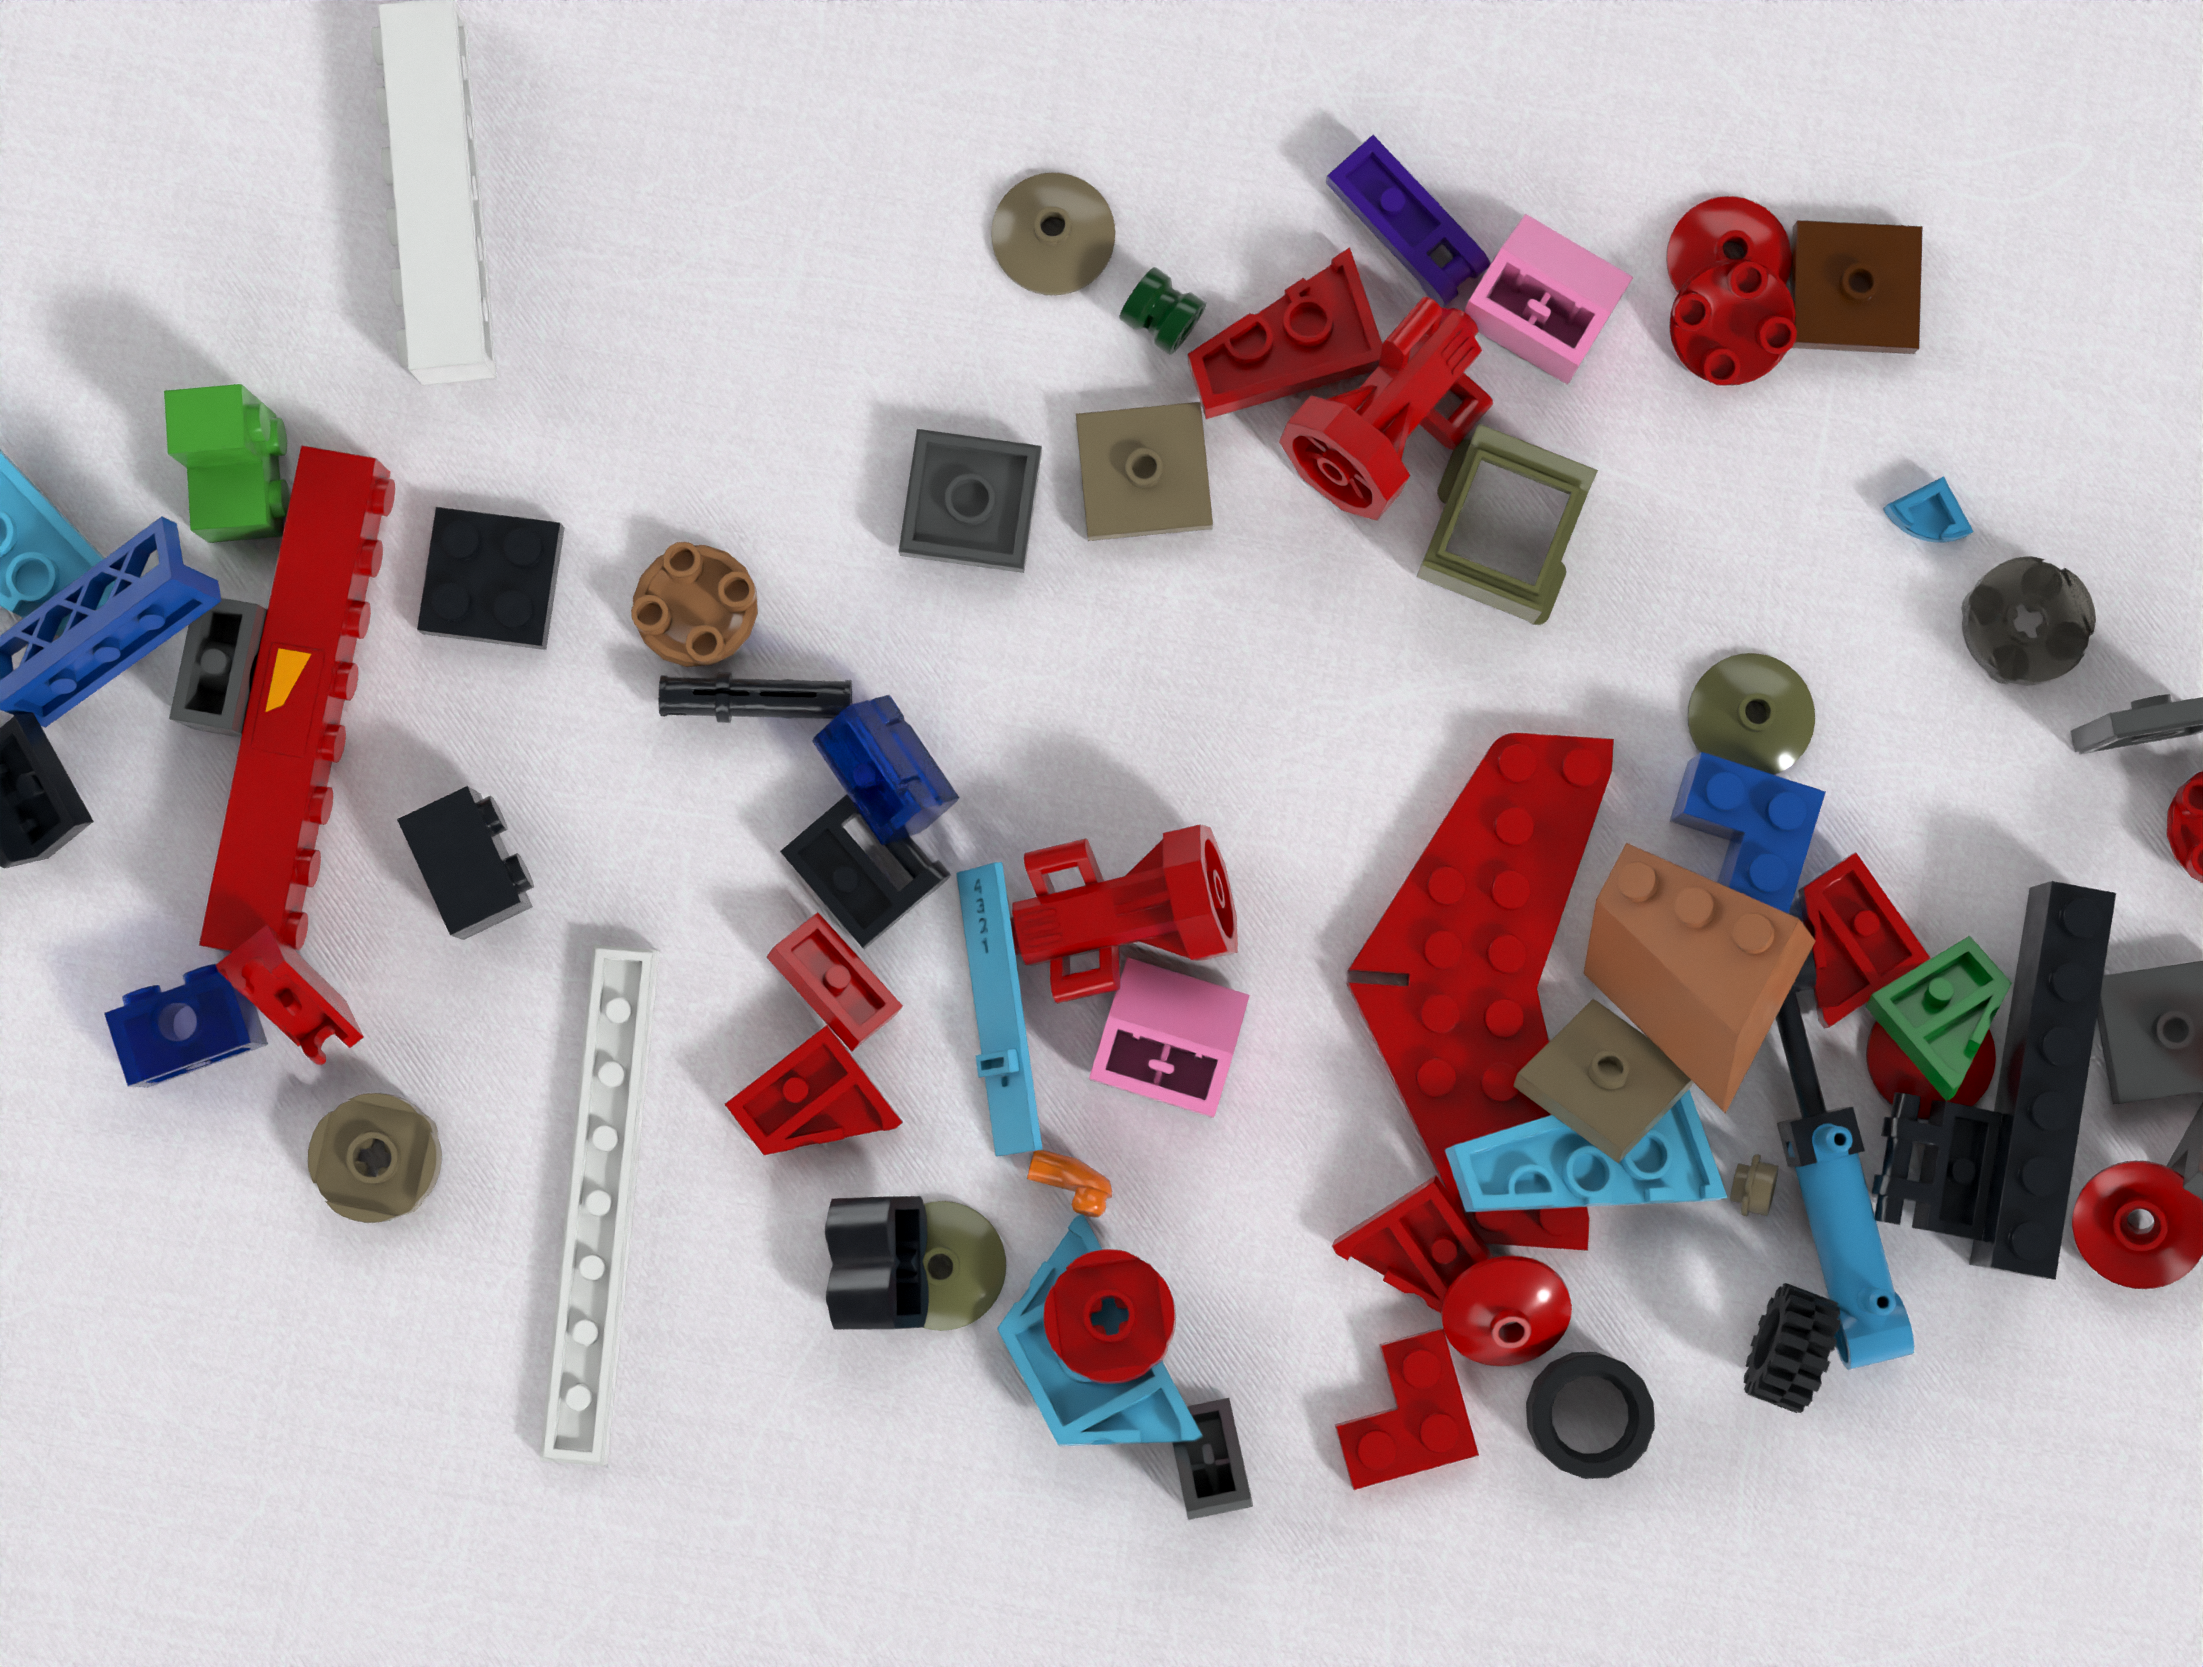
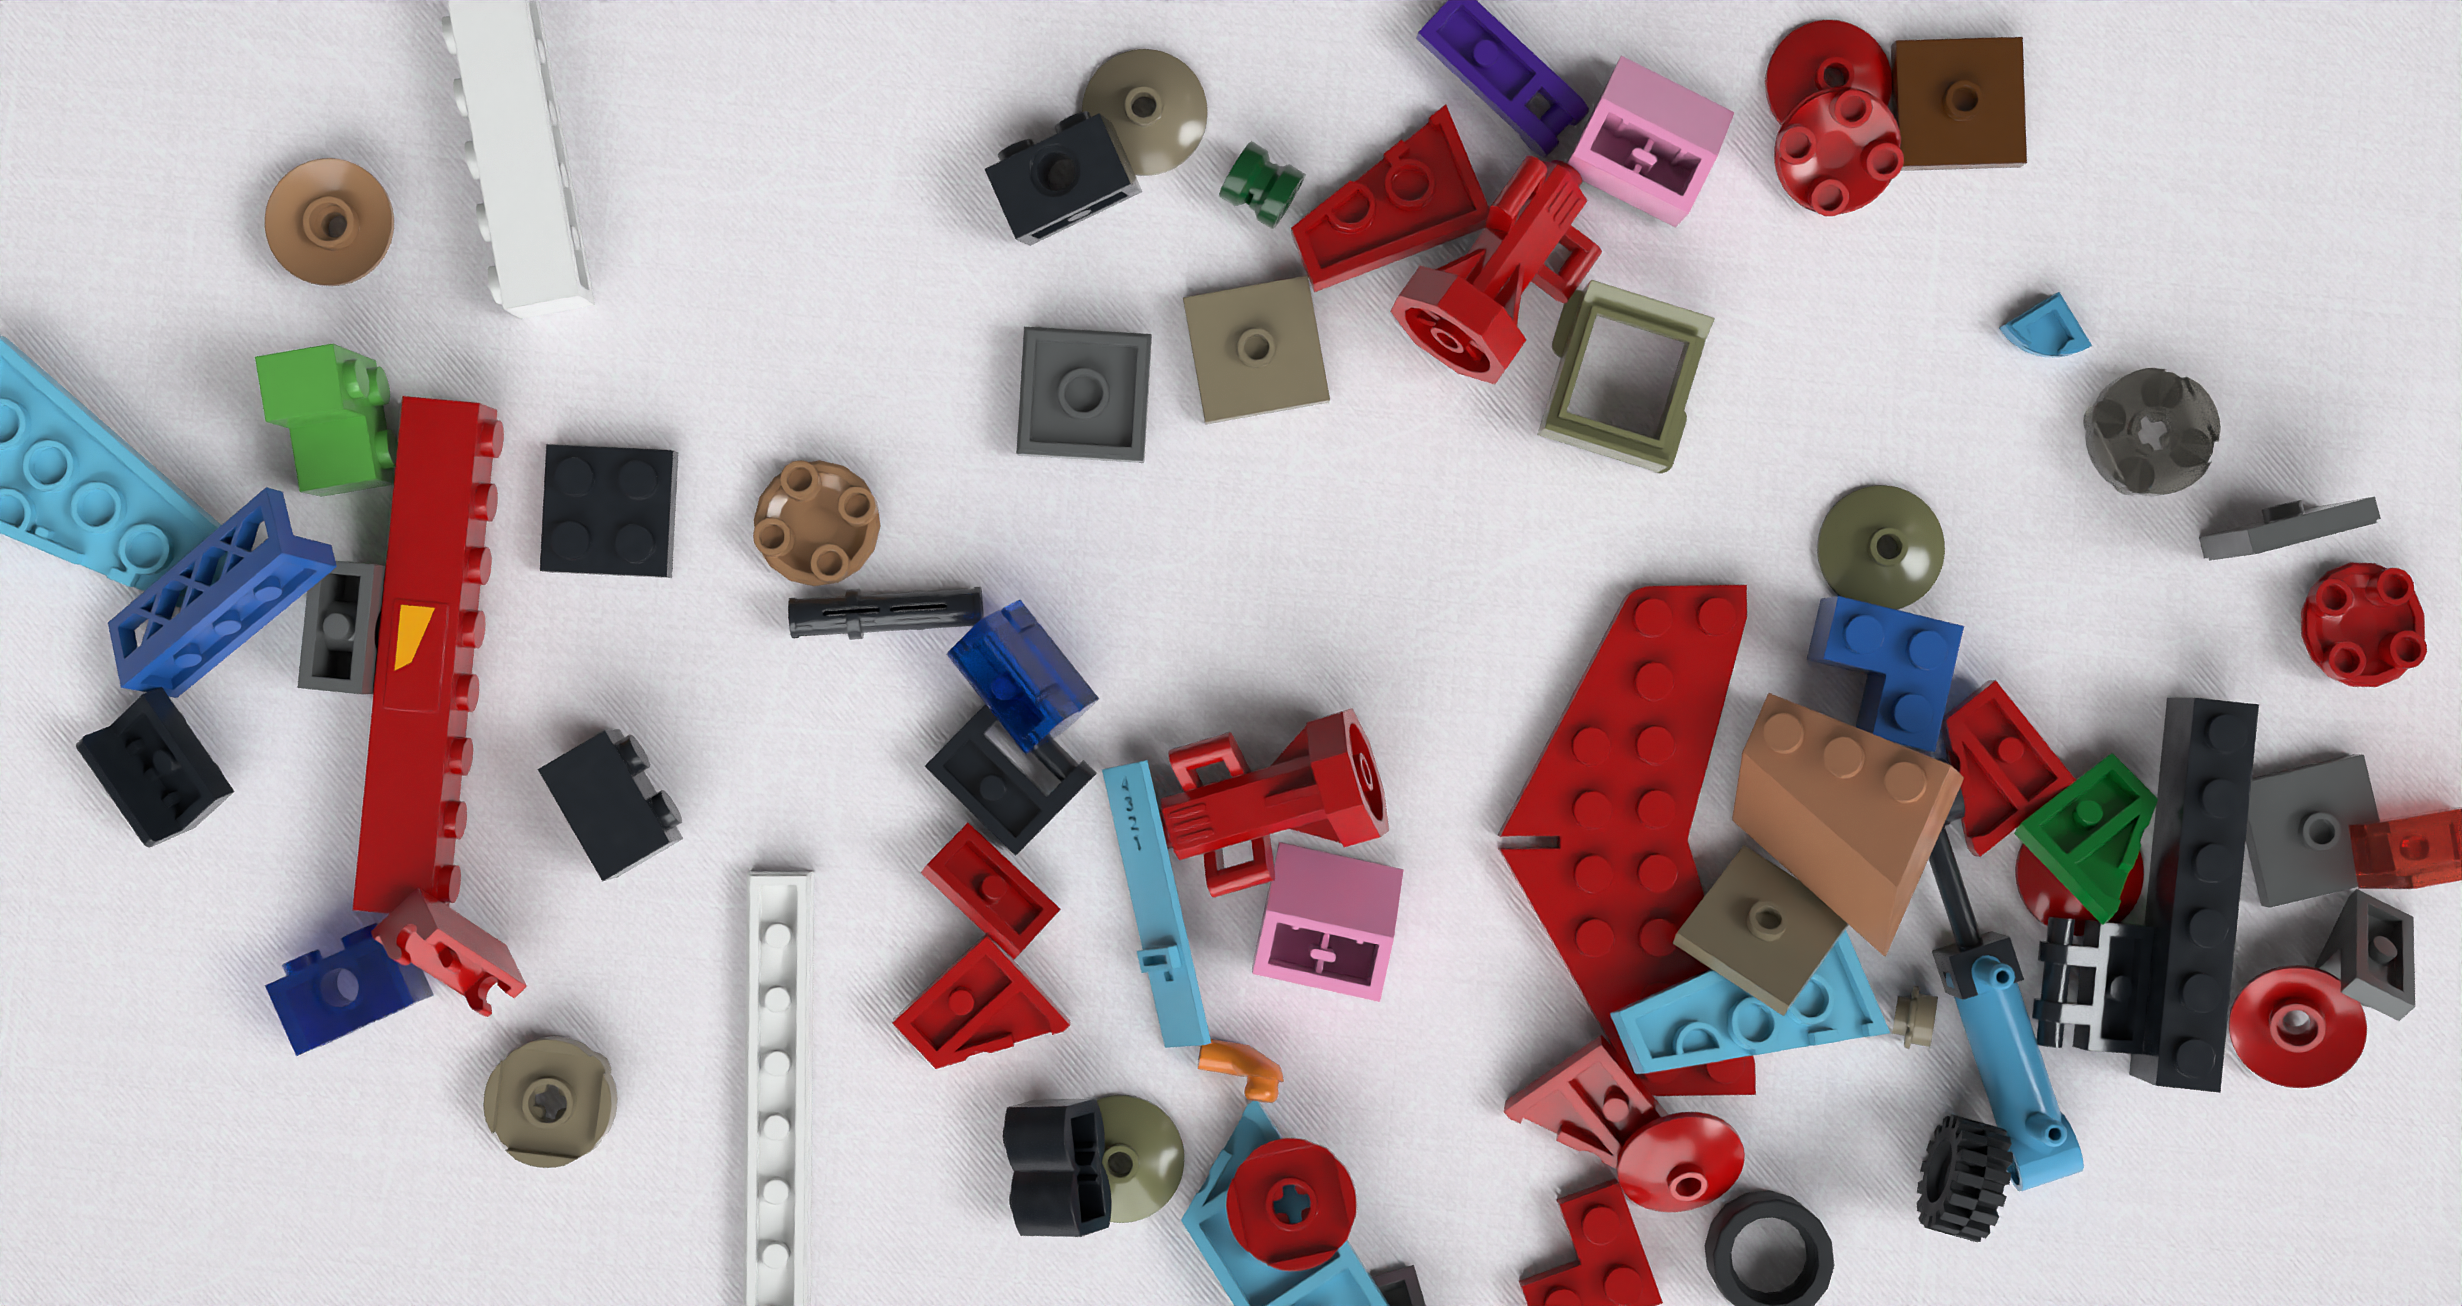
camera: 10 degrees left, 5 degrees up
(226, 256) = (301, 215): none -> medium nougat dish
(1003, 294) = (1100, 178): none -> black brick

